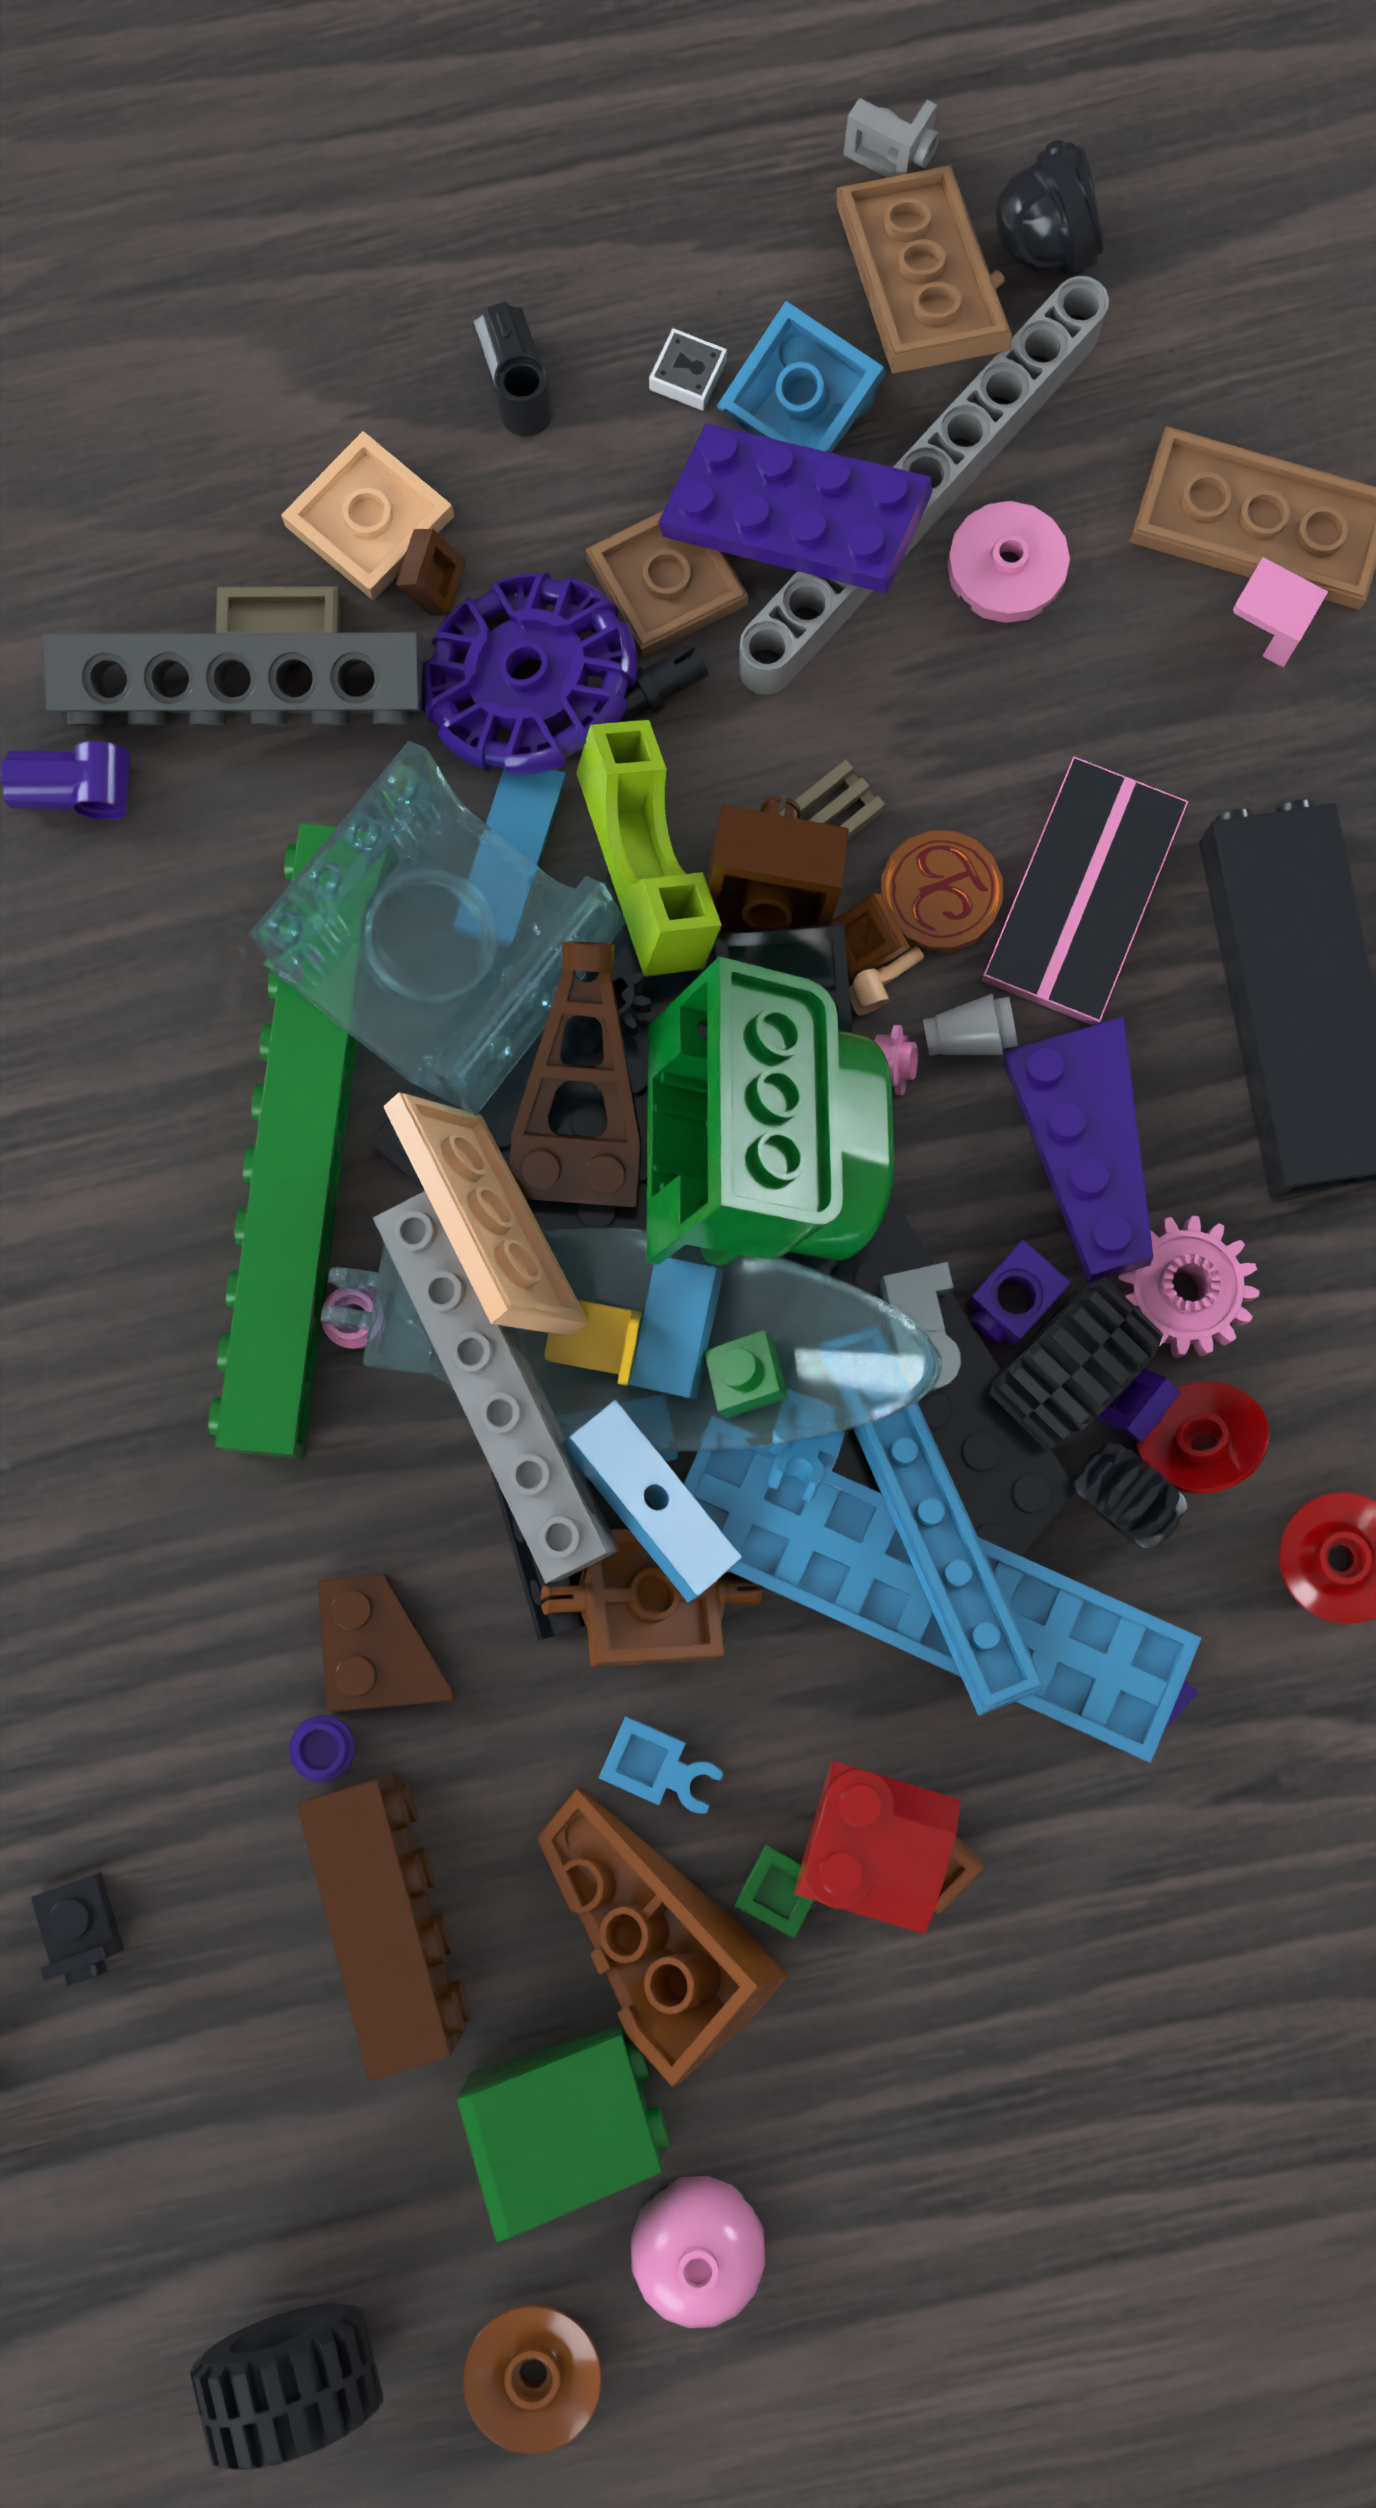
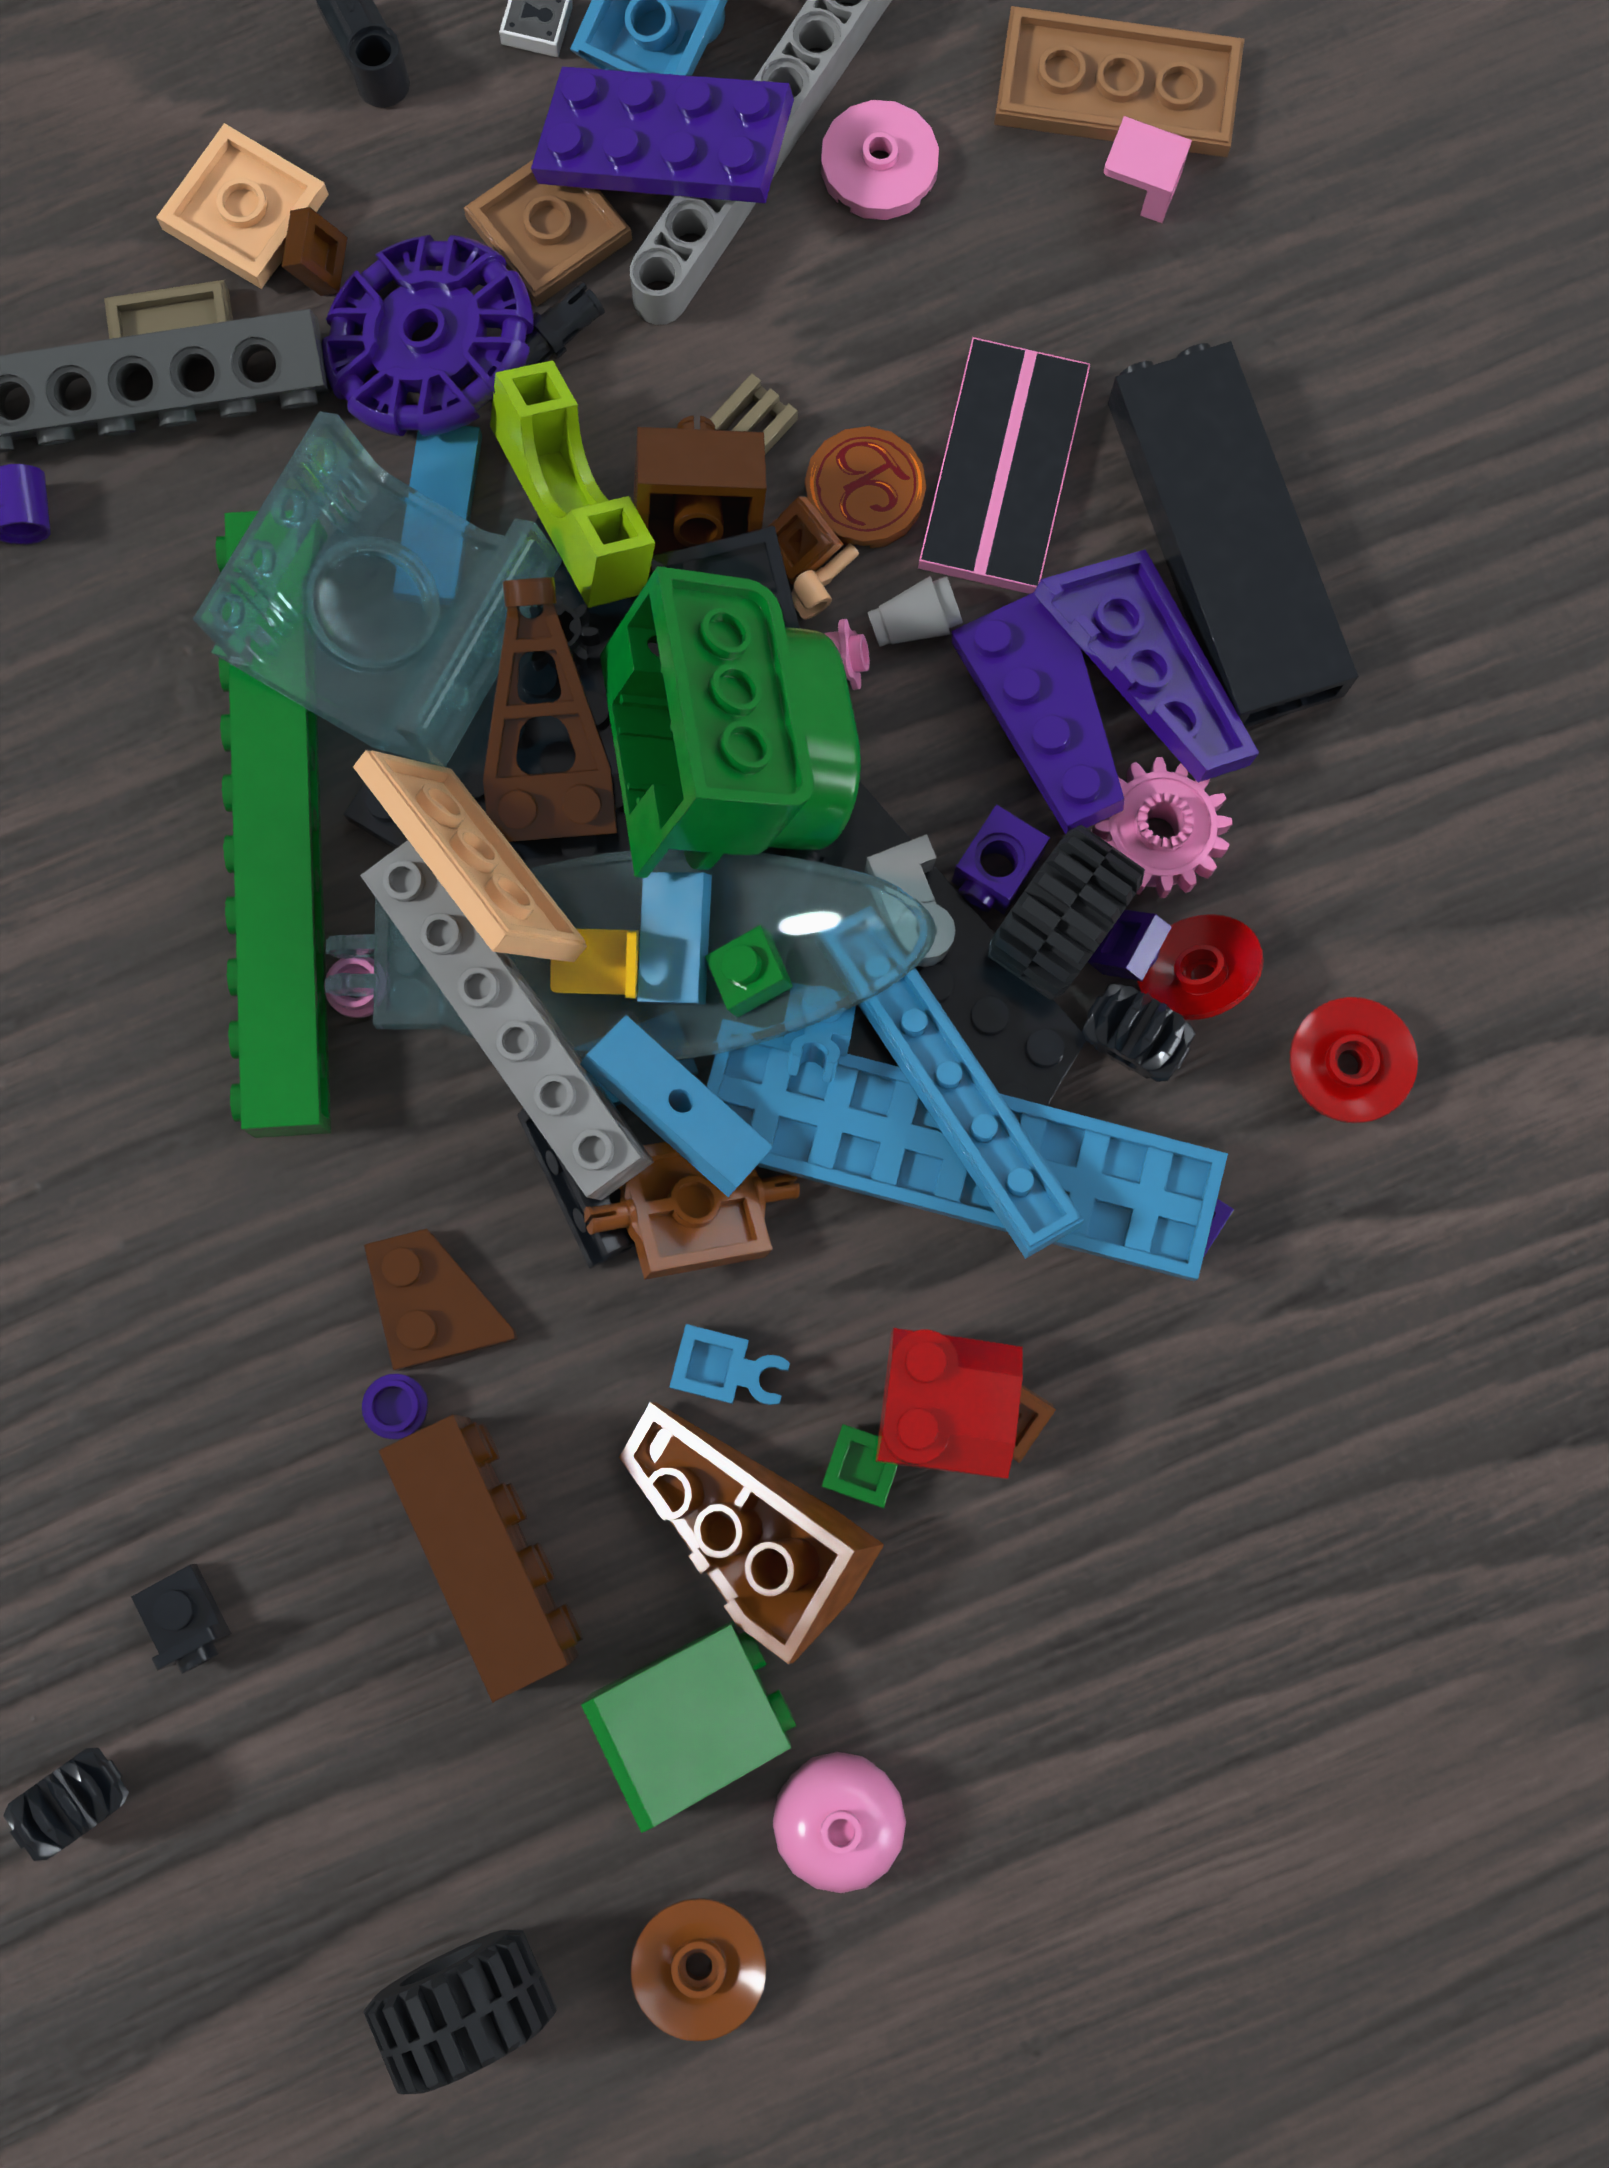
camera: 15 degrees left, 0 degrees up
(1202, 1109) = (1149, 654): none -> dark purple wing

